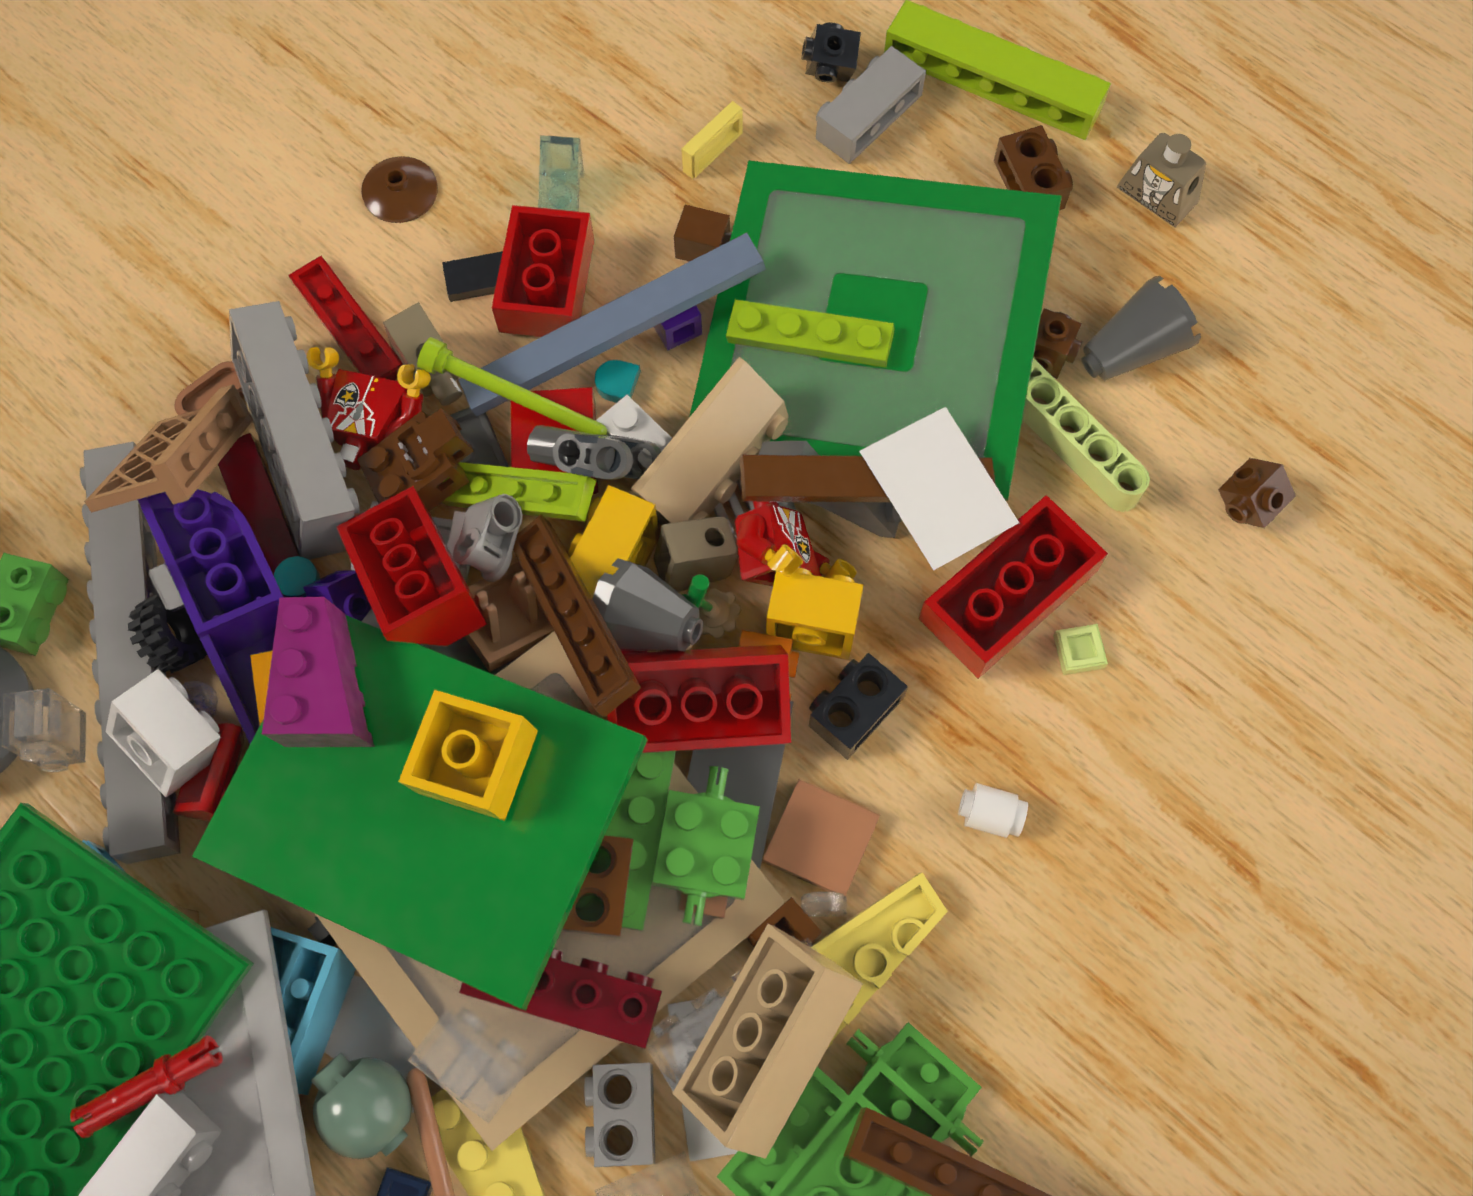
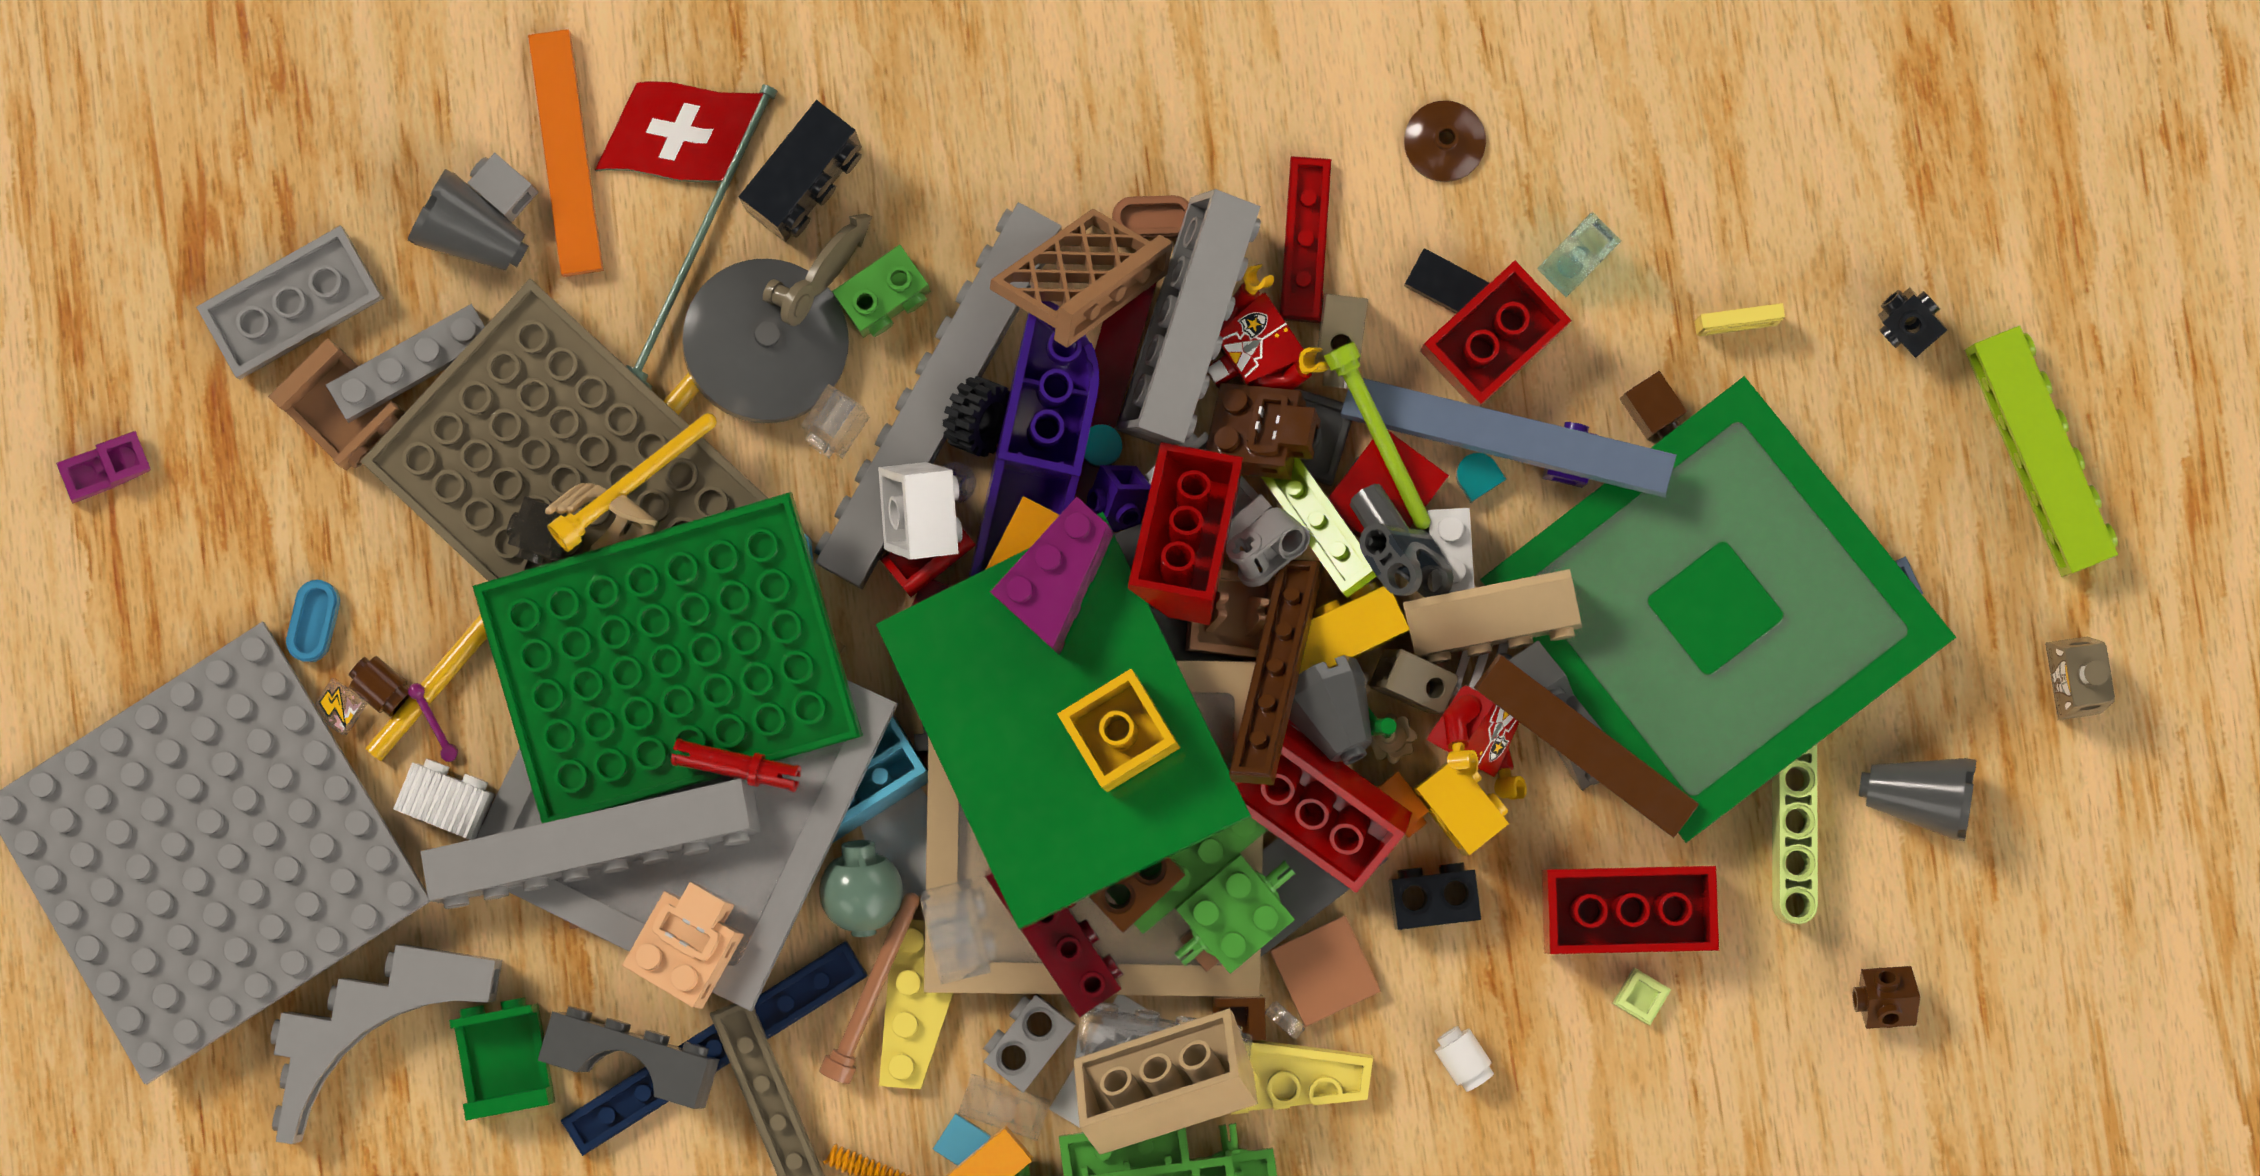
camera: 40 degrees right, 15 degrees up
(166, 588) = (1002, 396): light grey tile -> none
(810, 333) = (1657, 575): lime plate -> none
(869, 104) = (1902, 394): light grey brick -> none
(939, 487) = (1634, 795): white sticker -> none
(1031, 162) = (1970, 571): reddish brown brick -> none
(1056, 341) = (1839, 753): reddish brown brick -> none

